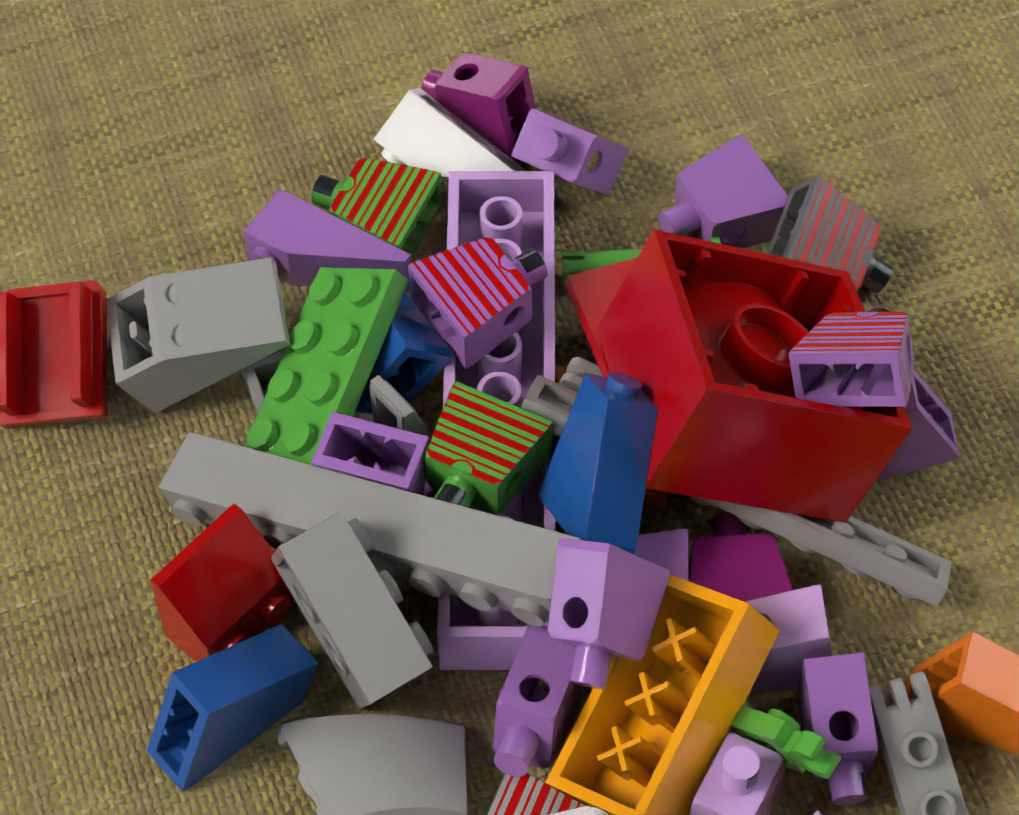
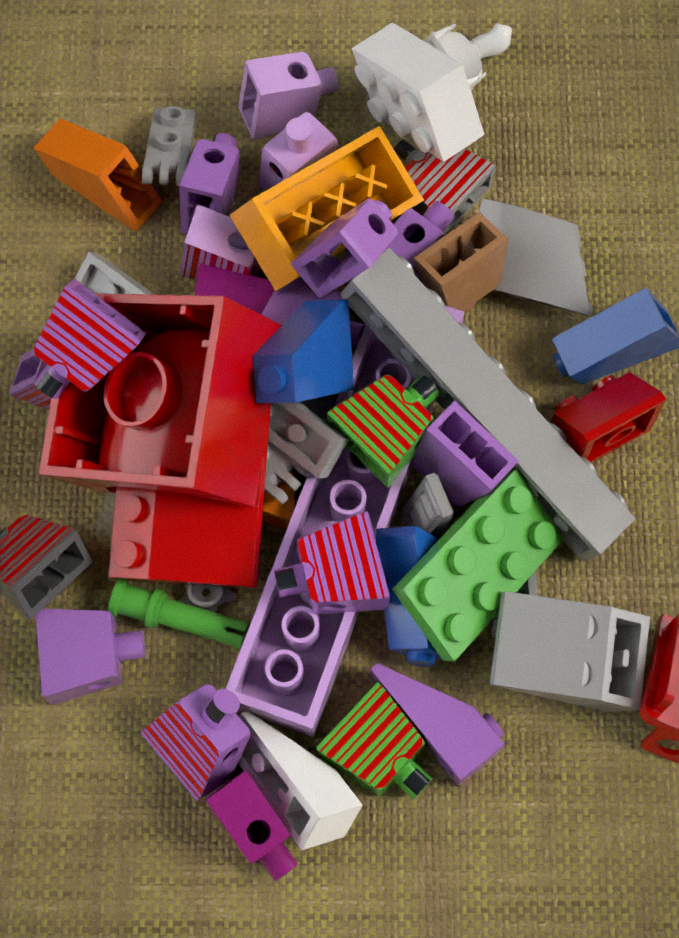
camera: 160 degrees left, 15 degrees up
(353, 608) = (527, 335): light grey slope -> none
(457, 688) = (464, 263): none -> medium nougat torso
(783, 735) = (259, 158): bright green plate -> none

